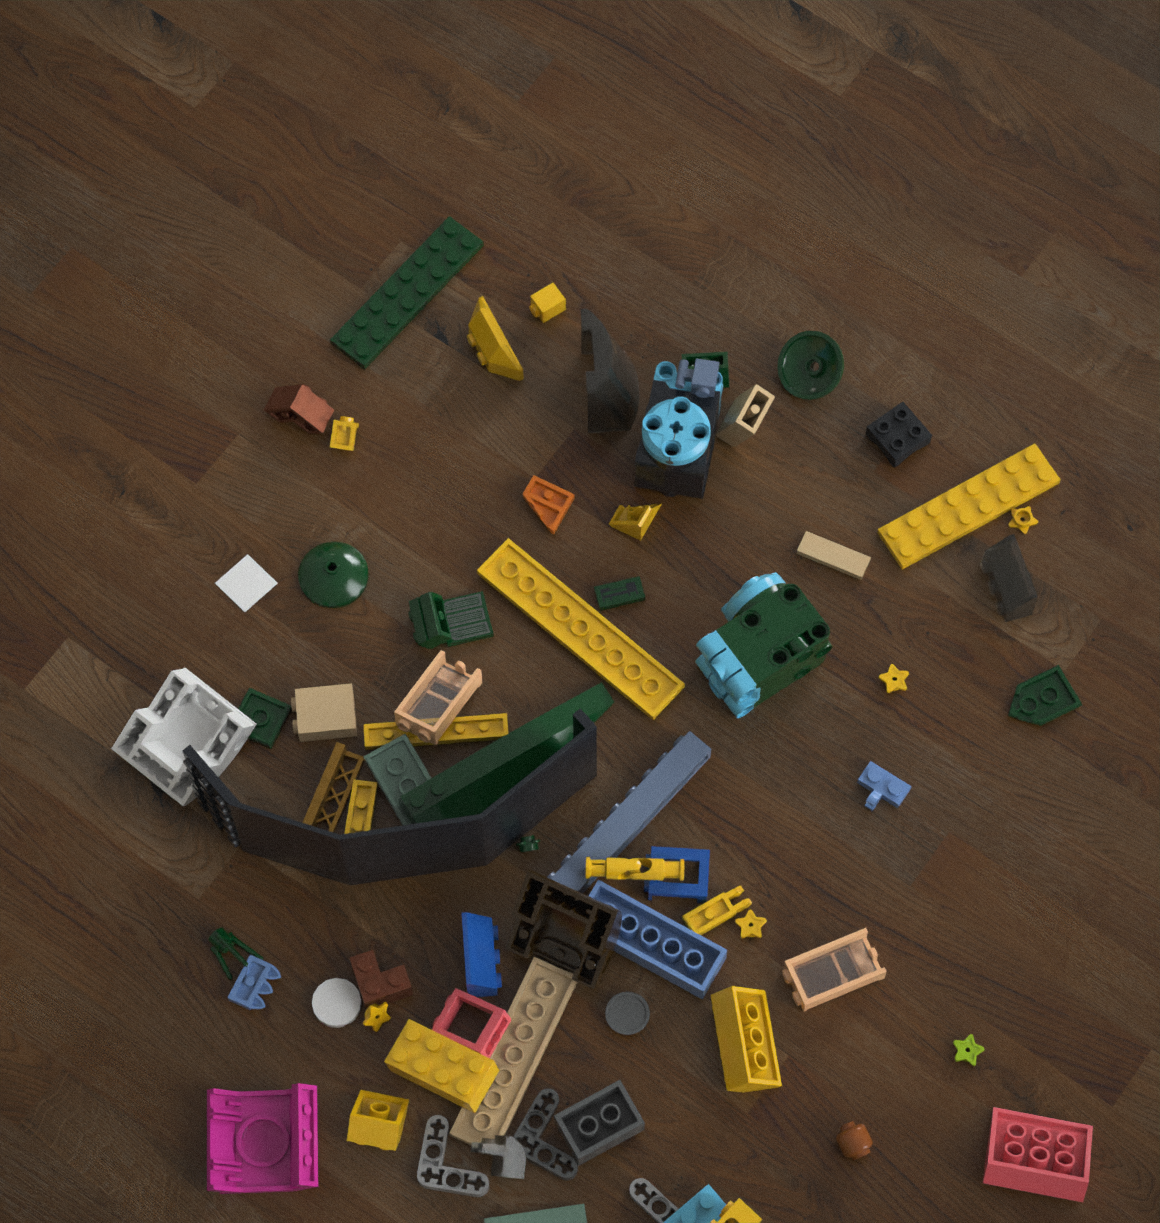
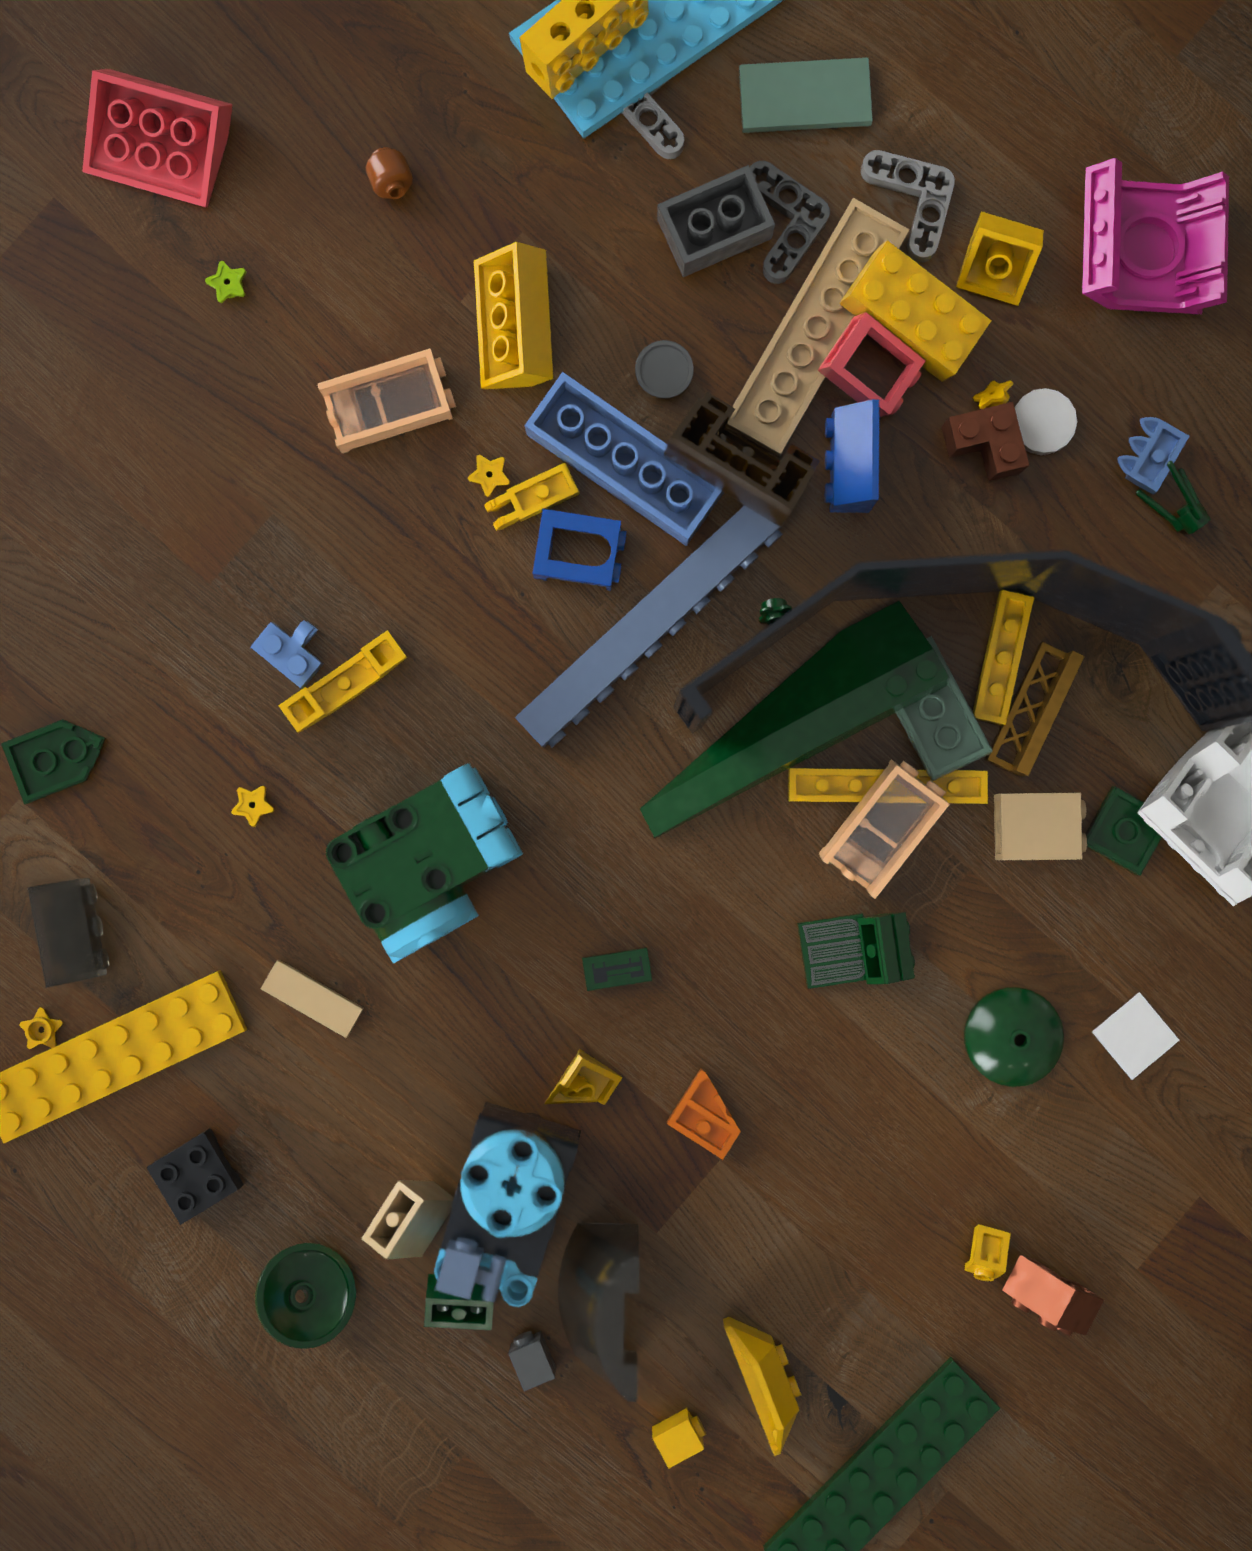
camera: 175 degrees left, 20 degrees up
(507, 1153) = (845, 187): clear smoke brick -> none
(580, 629) = (678, 920): yellow plate -> none
(625, 868) = (661, 551): yellow piece -> none
(651, 340) = (532, 1360): none -> dark grey brick
(840, 767) = (343, 683): none -> yellow slope

